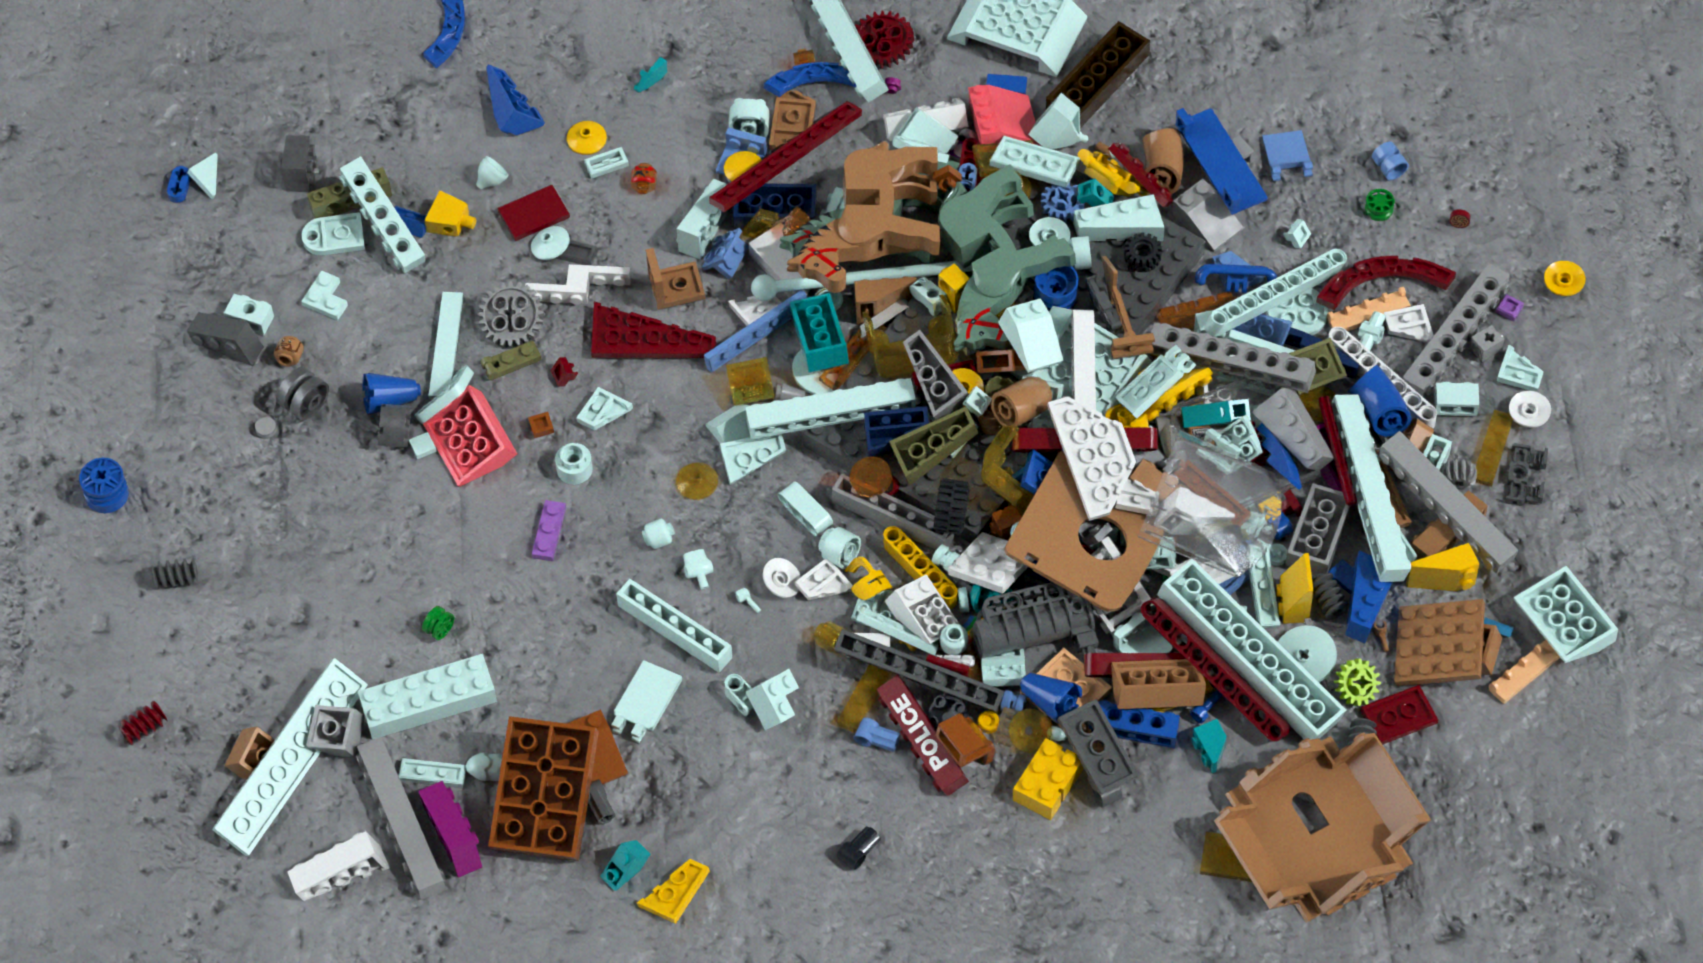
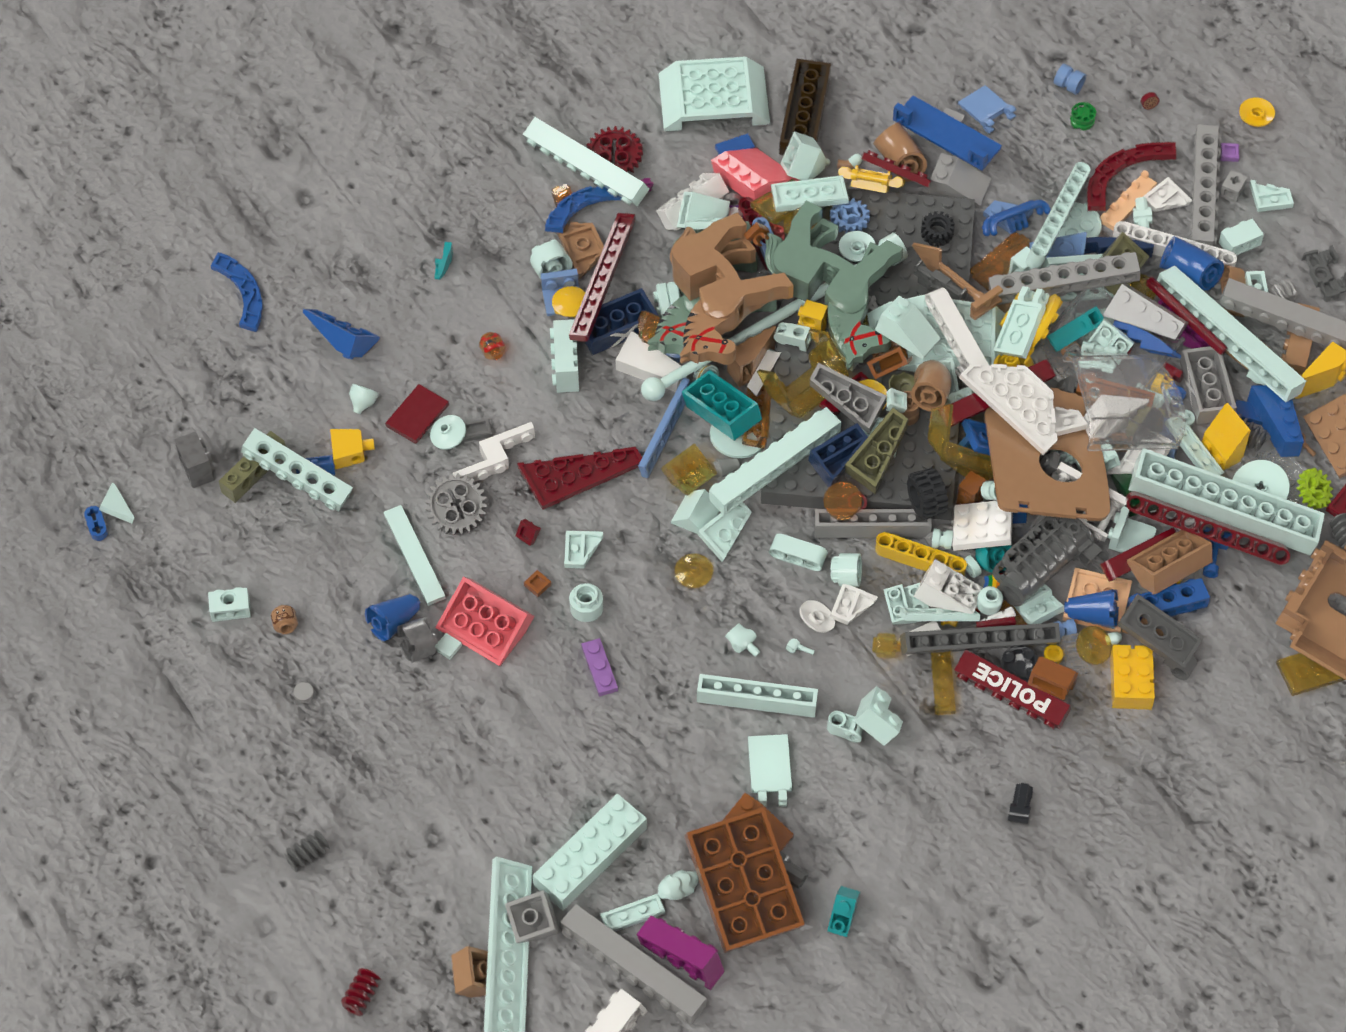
camera: 30 degrees left, 0 degrees up
(103, 485) = (196, 805): blue wheel -> none
(226, 336) = (221, 632): dark grey wedge -> none
(302, 393) = (322, 648): flat silver wheel -> none
(320, 297) = (283, 565): light aqua plate -> none
(335, 234) = (259, 505): light aqua tile -> none
(438, 622) = (560, 786): green wheel -> none
(455, 388) = (452, 586): light aqua beam -> none
(511, 360) = (477, 542): olive plate -> none
(589, 143) = (420, 340): yellow dish -> none
(607, 165) = (453, 349): light aqua tile -> none
(658, 533) = (693, 627): light aqua head -> none
(664, 282) = (564, 419): medium nougat bracket -> none
(676, 893) = (898, 916): yellow wing -> none
(726, 253) = (599, 376): medium blue bracket -> none
(752, 309) = (650, 412): white wing -> none
(760, 223) = (616, 340): clear yellow tile -> none
(862, 588) = (889, 595): yellow helmet -> none
(871, 733) = (970, 708): medium blue piece -> none
(1057, 287) = (894, 283): blue wheel -> none
(1094, 193) = (875, 199): teal leg -> none
(1120, 220) = (905, 210): light aqua wedge -> none
(1211, 743) = (1236, 589): teal slope -> none
(1297, 233) = (1036, 165): light aqua tile -> none
(1493, 447) = (1288, 260): clear yellow tile -> none
(1530, 402) = (1298, 216): white dish -> none

